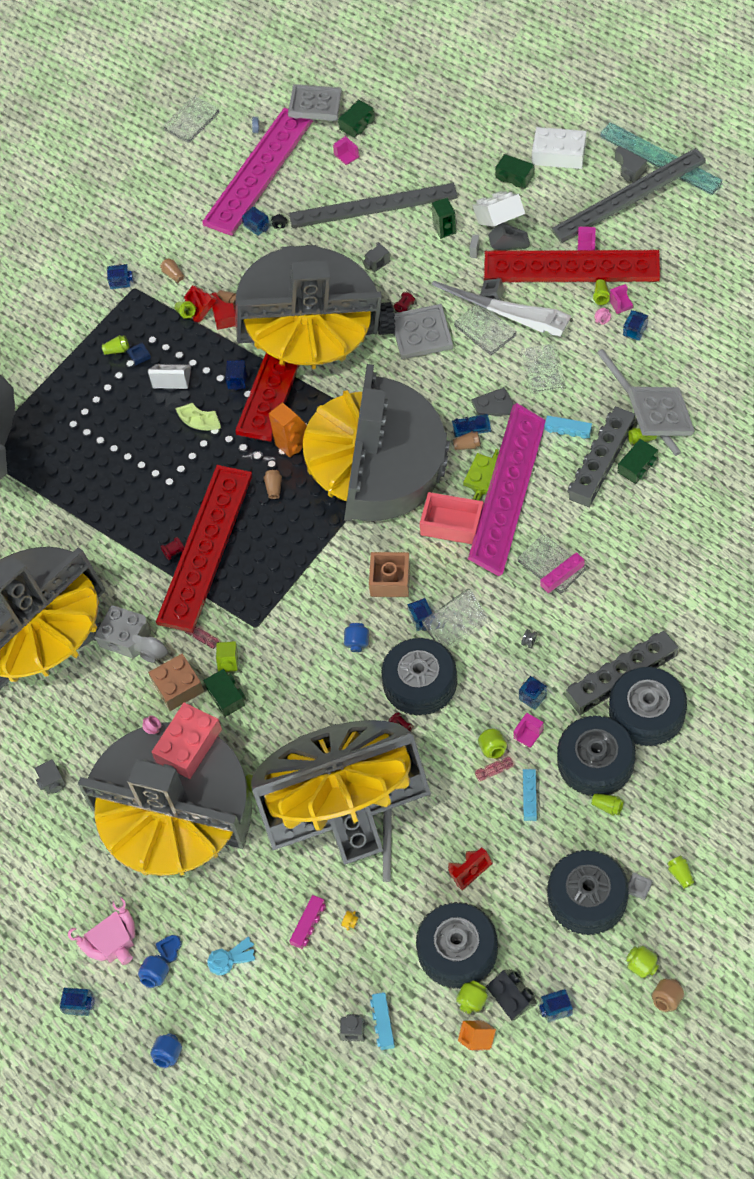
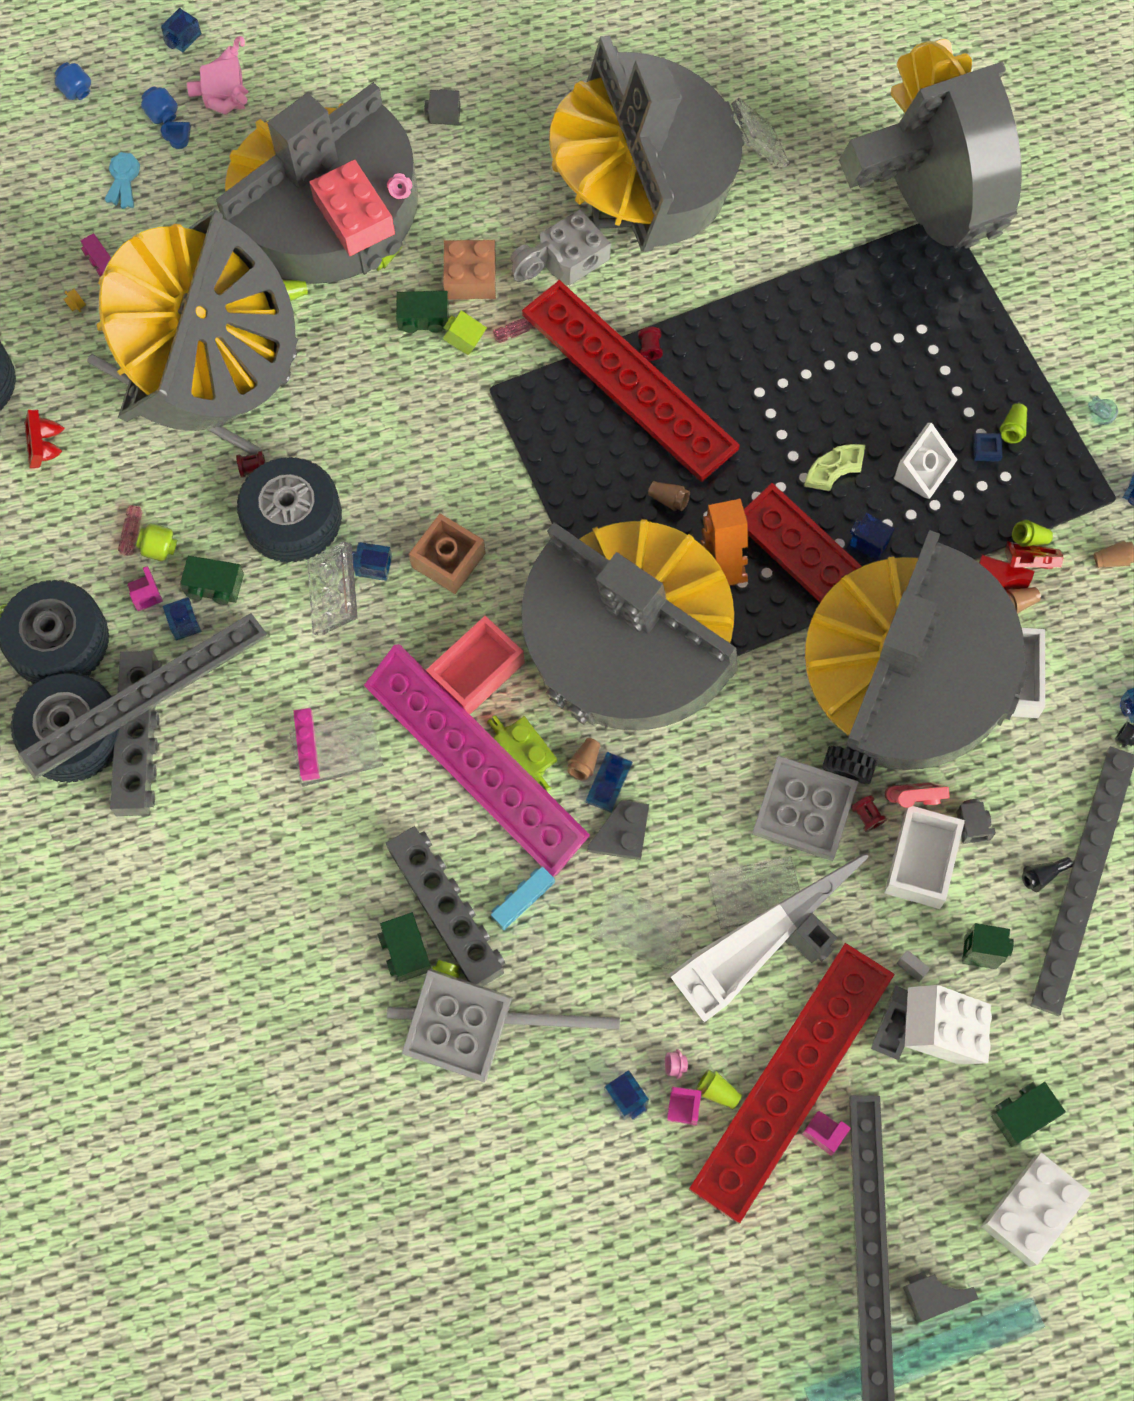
camera: 115 degrees right, 10 degrees up
(79, 315) = (1103, 410): none -> clear light blue piece
(356, 637) = (394, 477): blue head -> none
(378, 274) = (907, 794): none -> coral plate
(386, 221) = (1039, 875): none -> black cone
(413, 265) = (924, 857): none -> white piece
(495, 695) = (211, 580): none -> dark green brick
(529, 638) = (255, 660): dark grey bush -> none
(529, 794) = (71, 546): medium azure piece -> none
(601, 664) = (141, 696): none -> dark grey plate

